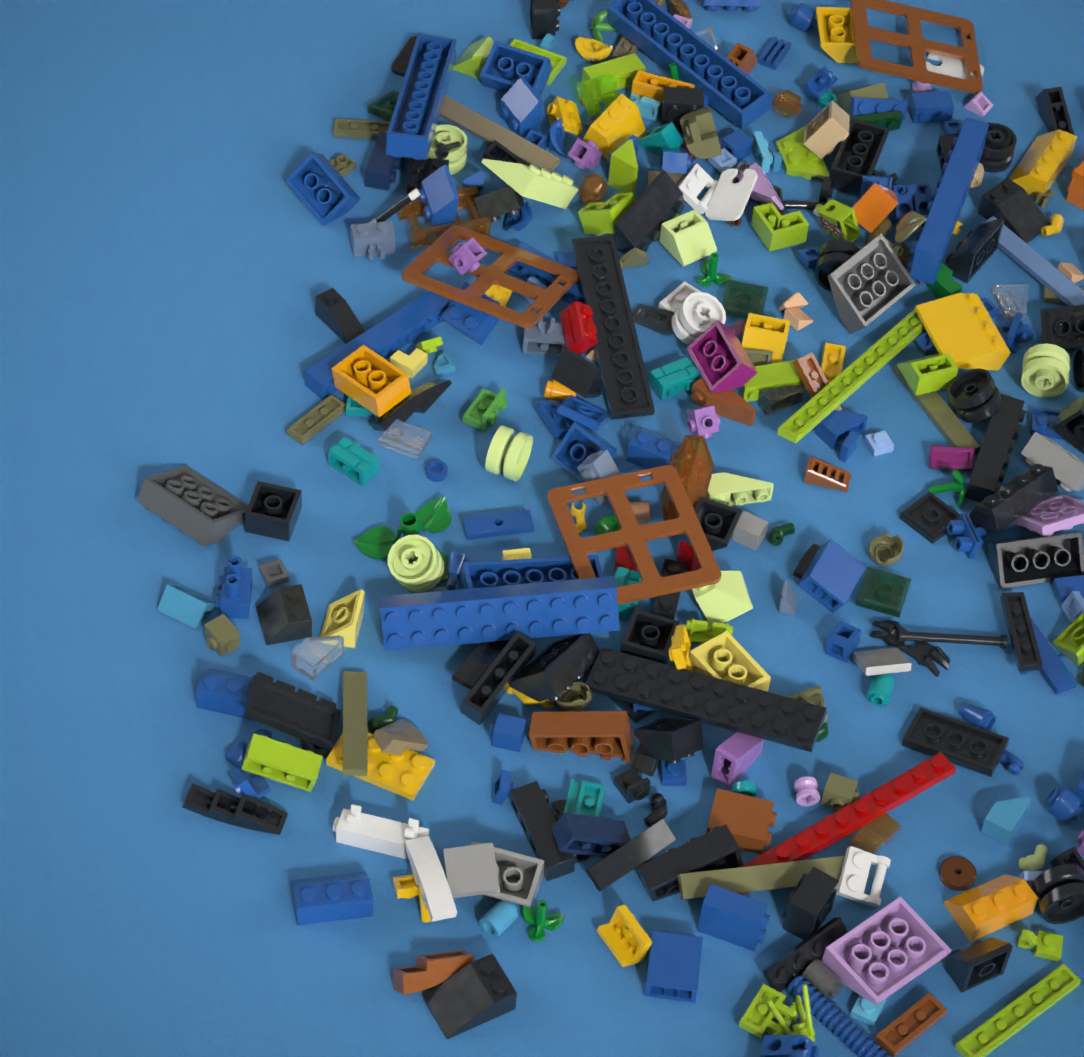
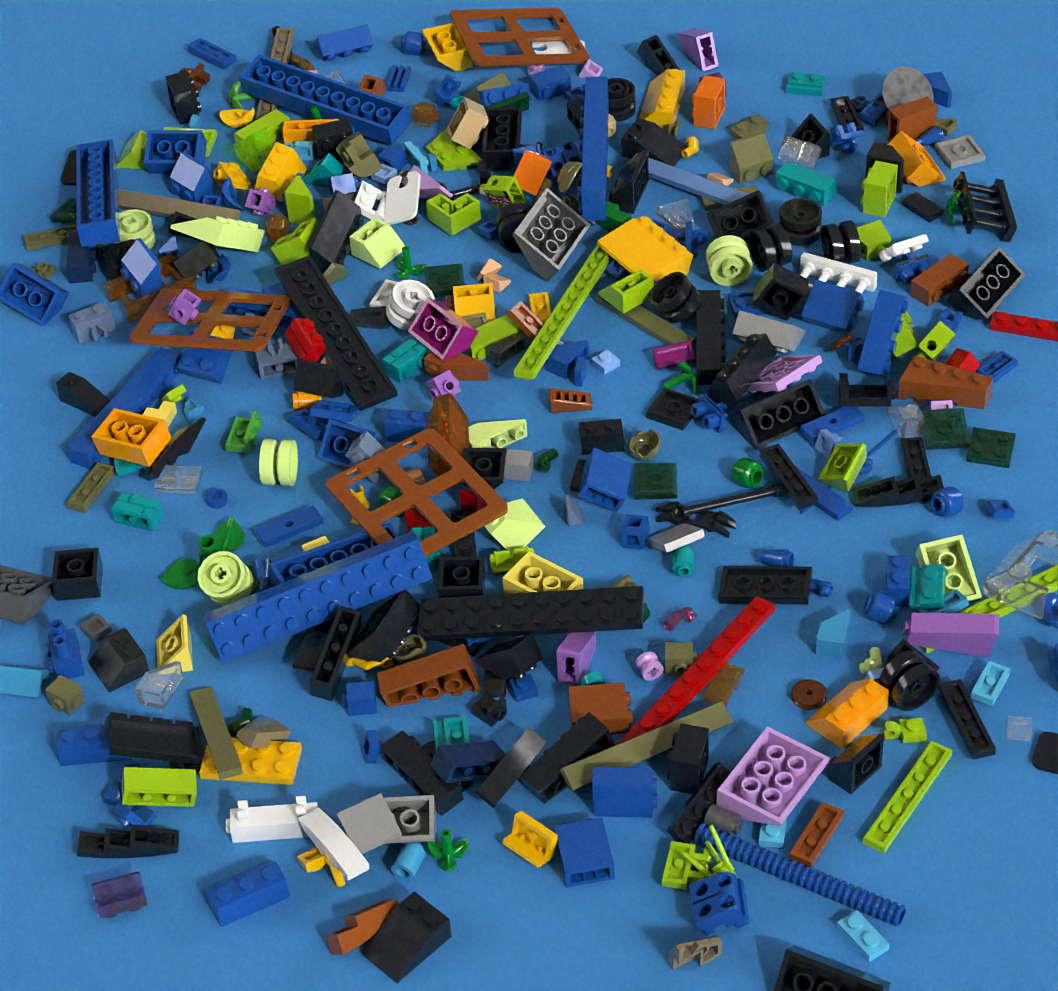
camera: 10 degrees left, 5 degrees down
(209, 861) = (119, 895): none -> clear purple bracket
(397, 206) = (107, 287): black bar -> none
(442, 151) = (132, 230): black hand -> none
(659, 809) = (521, 722): black arm -> none
(680, 648) = (493, 577): yellow plate -> none
(845, 525) = (602, 434): none -> black slope
(855, 875) = (719, 722): white plate -> none
(856, 746) = (679, 615): none -> clear pink arm
(980, 613) = (747, 473): none -> green head

